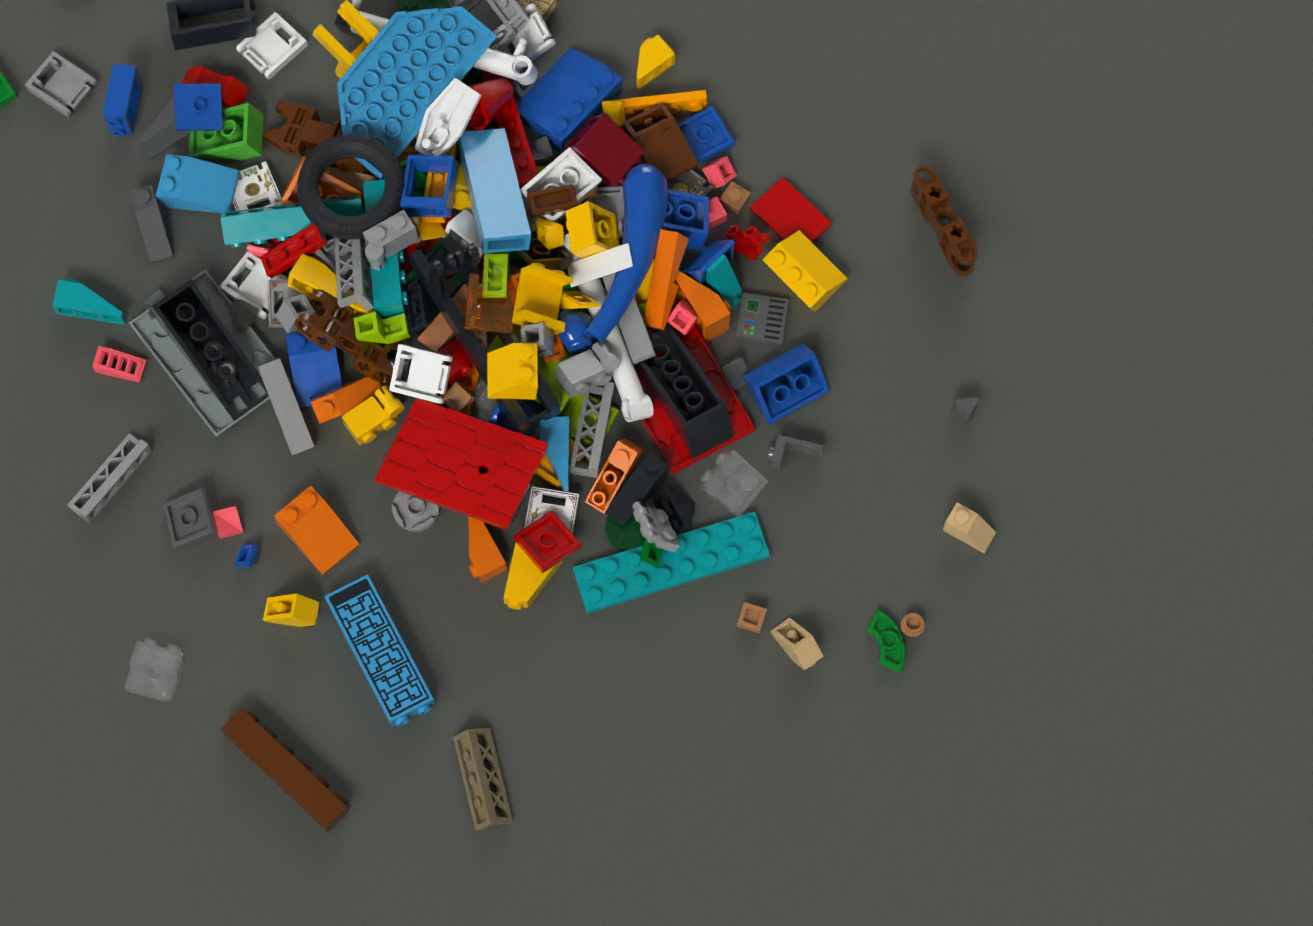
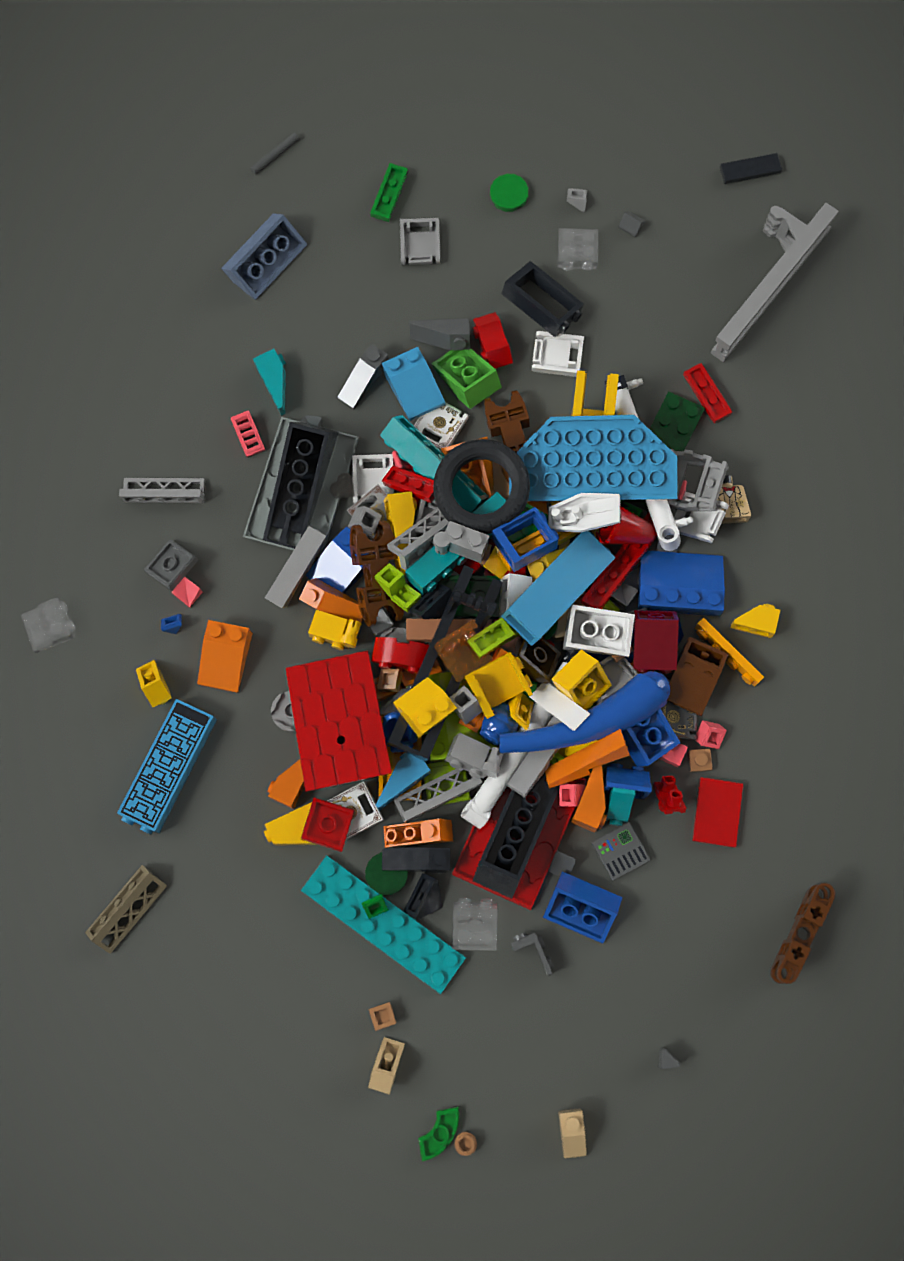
camera: 60 degrees right, 5 degrees up
(122, 100) = (435, 288): blue window -> none
(197, 107) = (466, 339): blue plate -> none
(285, 770) = (36, 766): reddish brown brick -> none
(426, 376) = (387, 644): white container -> none
(550, 233) = (557, 651): yellow slope -> none
(552, 200) = (582, 634): reddish brown tile -> none
(615, 111) = (692, 625): yellow slope -> none
(655, 527) = (395, 895): light grey plate -> none
(706, 134) = (730, 702): blue plate -> none
(805, 270) = (681, 856): yellow slope -> none

